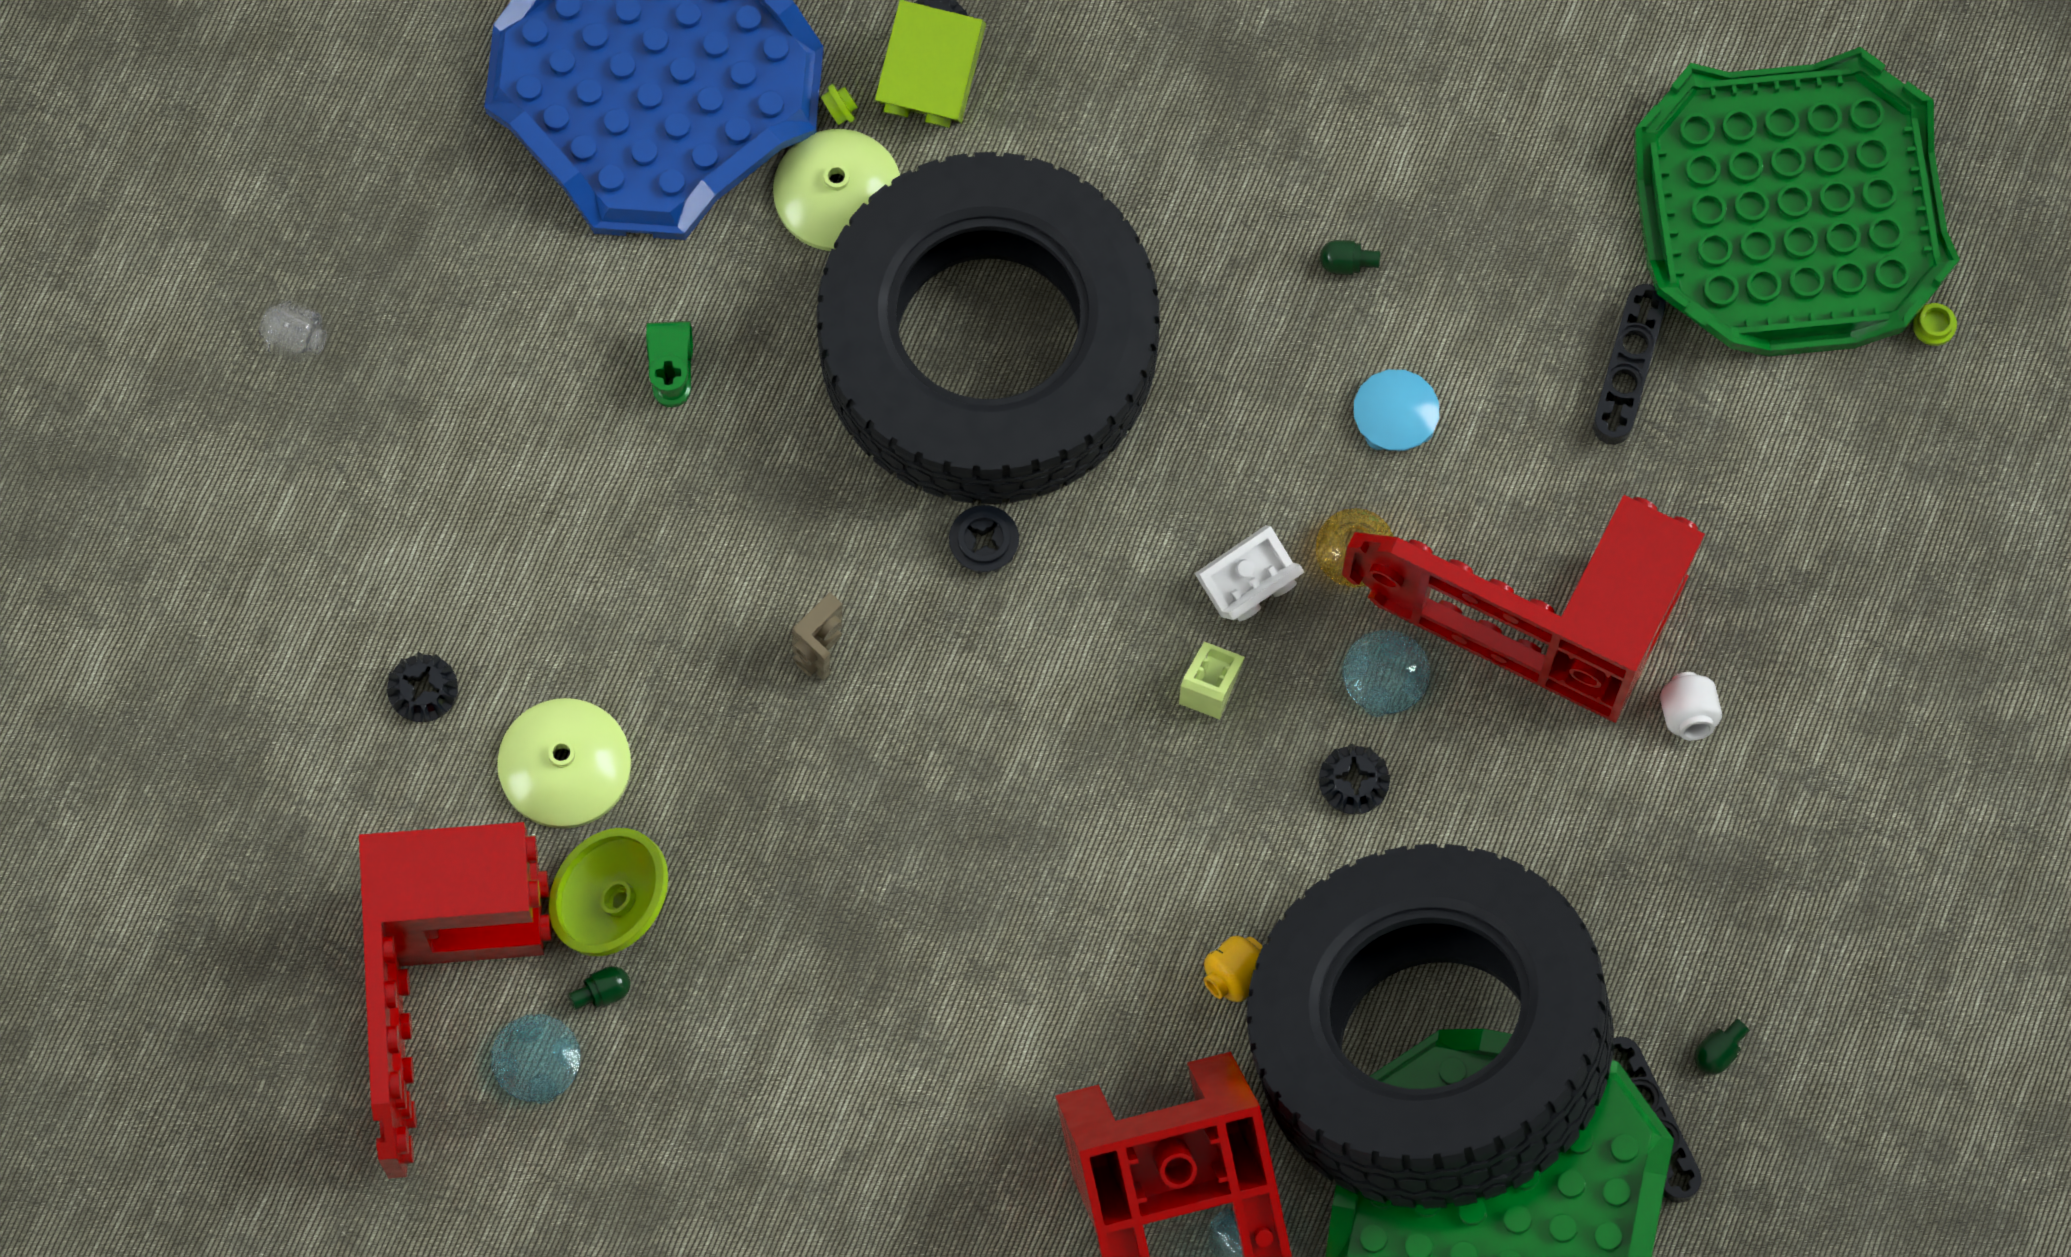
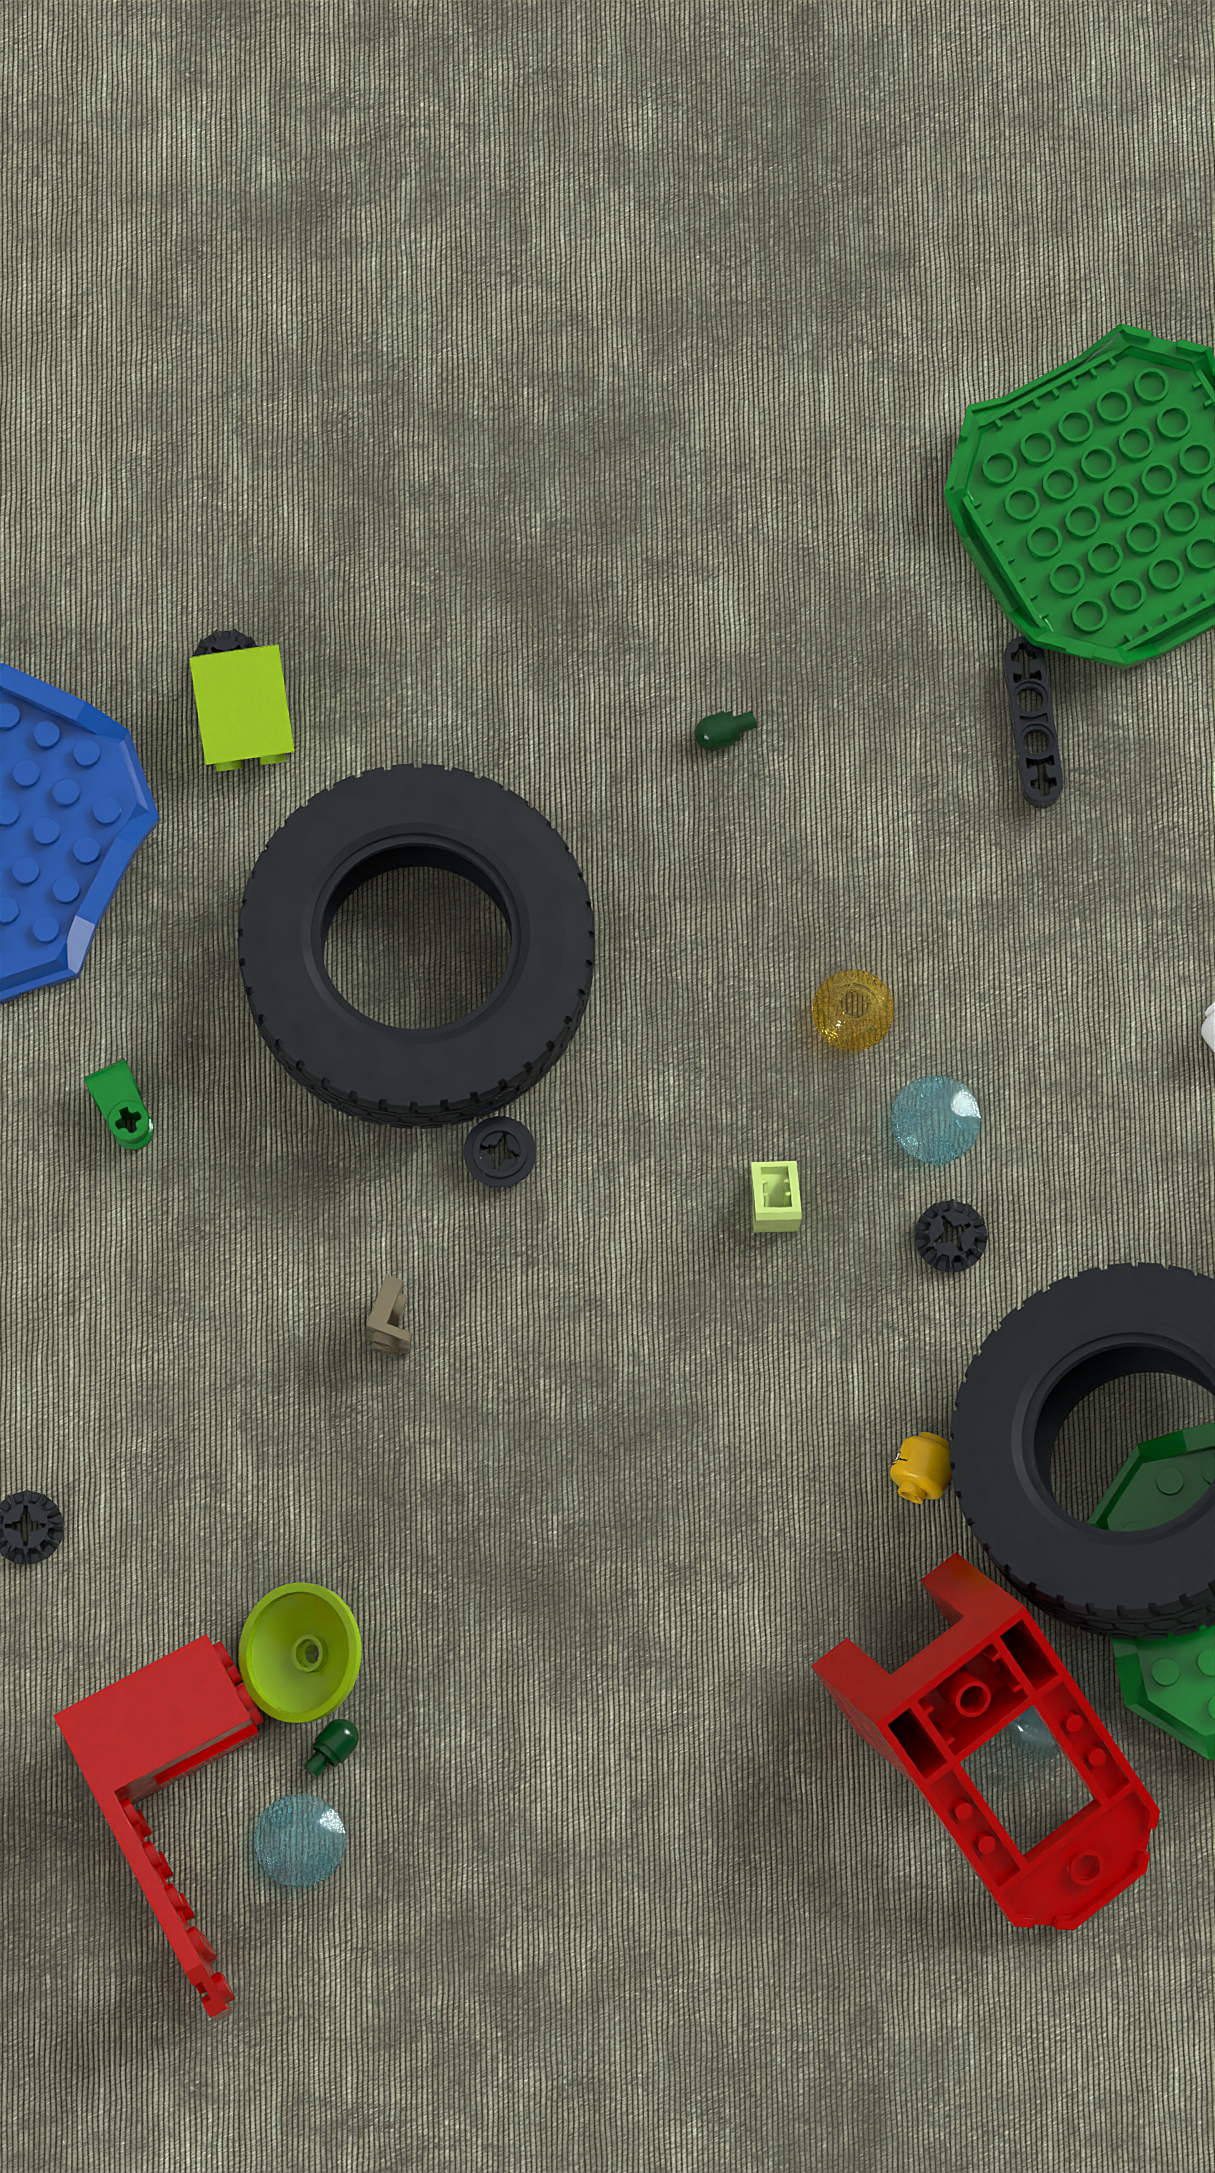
camera: 25 degrees left, 5 degrees up
(567, 790) = (202, 1574): yellowish green dish -> none
(811, 203) = (192, 893): yellowish green dish -> none
(840, 104) = (171, 781): lime plate -> none
(1249, 575) = (768, 1081): white bracket -> none
(1396, 410) = (834, 860): medium azure dish -> none
(1597, 641) = (1132, 1004): red bracket -> none

